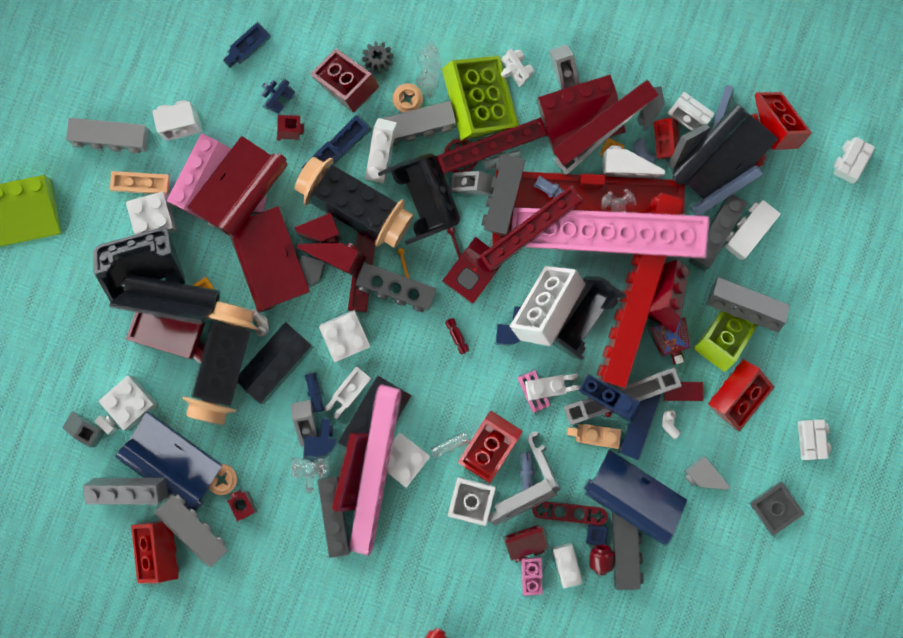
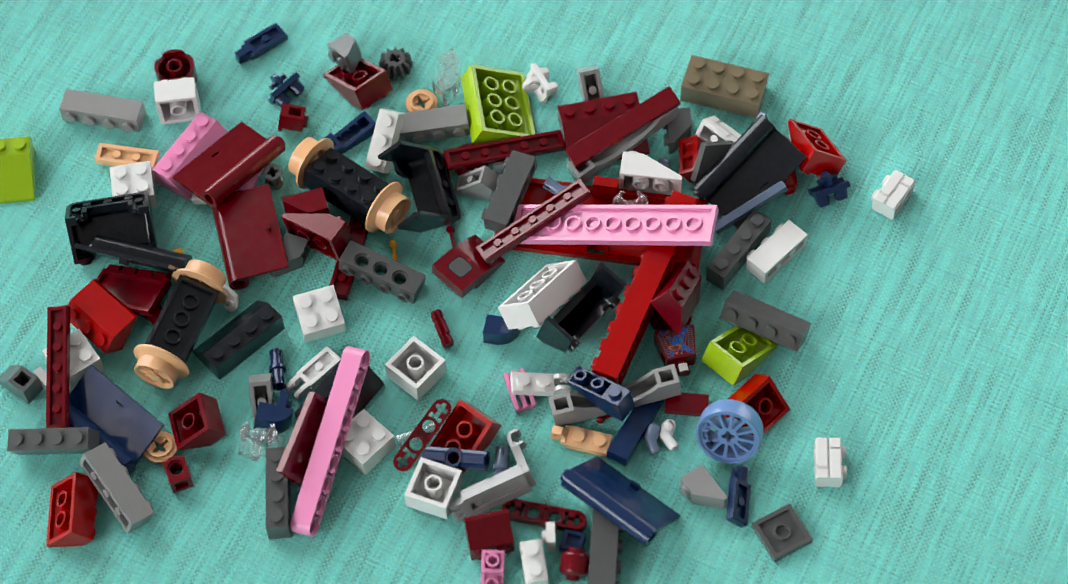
camera: 10 degrees right, 25 degrees down
(116, 420) = (58, 367): none -> dark red tile
(145, 360) = (101, 317): none -> red slope
(161, 82) = (175, 65): none -> dark red brick
(250, 455) = (197, 422): none -> dark red slope
(275, 191) = (273, 176): none -> dark grey bush
(329, 51) = (345, 52): none -> dark grey slope
(439, 383) = (416, 368): none -> white brick
(457, 452) = (422, 435): none -> dark red beam
(476, 471) = (467, 458): none -> dark blue piece
(577, 535) = (548, 536): none -> white plate
(655, 429) = (651, 436): none -> sand blue arm
(690, 57) = (724, 86): none -> dark tan brick
(728, 426) = (729, 431): none -> medium blue piece
(737, 479) = (738, 497): none -> dark blue hinge
(796, 159) = (827, 185): none -> dark blue hips

